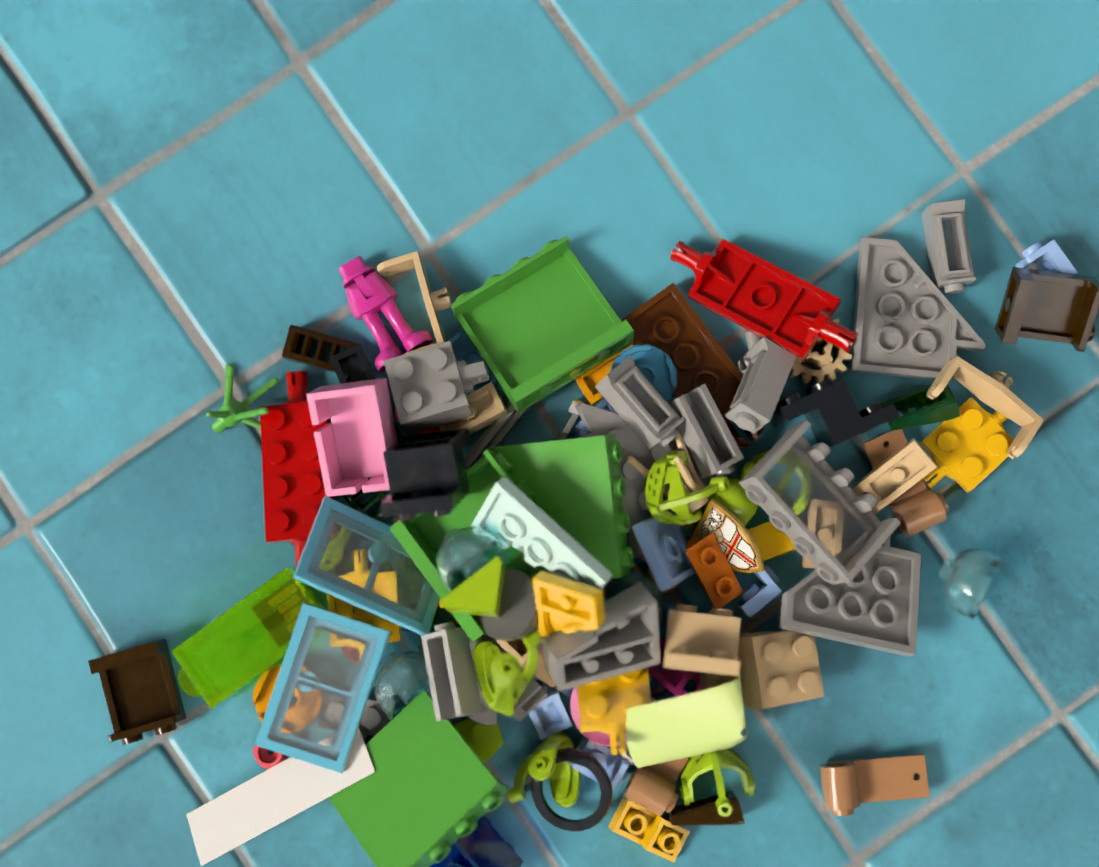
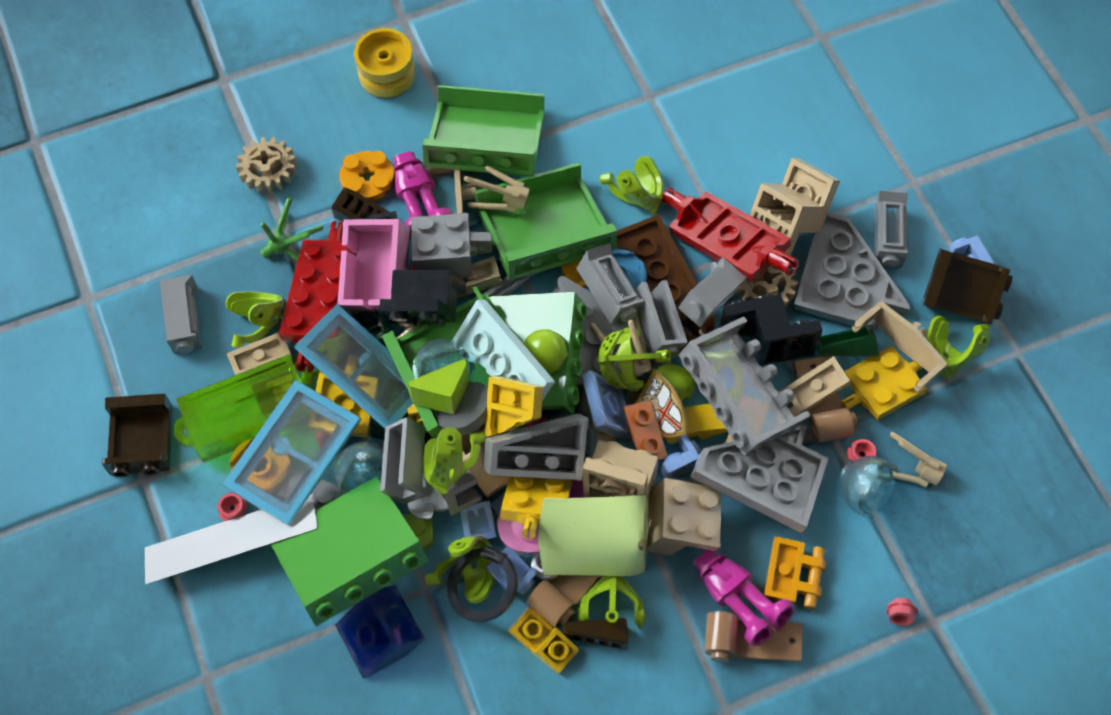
camera: 10 degrees right, 20 degrees down
(142, 531) = (180, 313): none -> light grey window
(172, 314) = (266, 164): none -> tan gear
(223, 498) = (261, 309): none -> lime helmet
(248, 564) = (258, 353): none -> tan plate
(294, 139) = (385, 62): none -> yellow wheel
(294, 289) = (367, 162): none -> light orange plate
(442, 214) = (485, 129): none -> bright green panel
(498, 306) = (514, 195): none -> tan plant
(586, 516) = (547, 348): none -> lime hair
(650, 235) = (642, 189): none -> lime helmet
(833, 723) = (727, 582): none -> dark pink piece
(835, 241) = (798, 202): none -> tan bracket
(895, 696) = (785, 568): none -> light orange plate
(965, 535) = (858, 446): none -> coral plate
(1027, 716) = (902, 612): none -> coral plate
(1031, 541) = (929, 468): none -> tan plant
(1050, 399) = (938, 338): none -> lime helmet

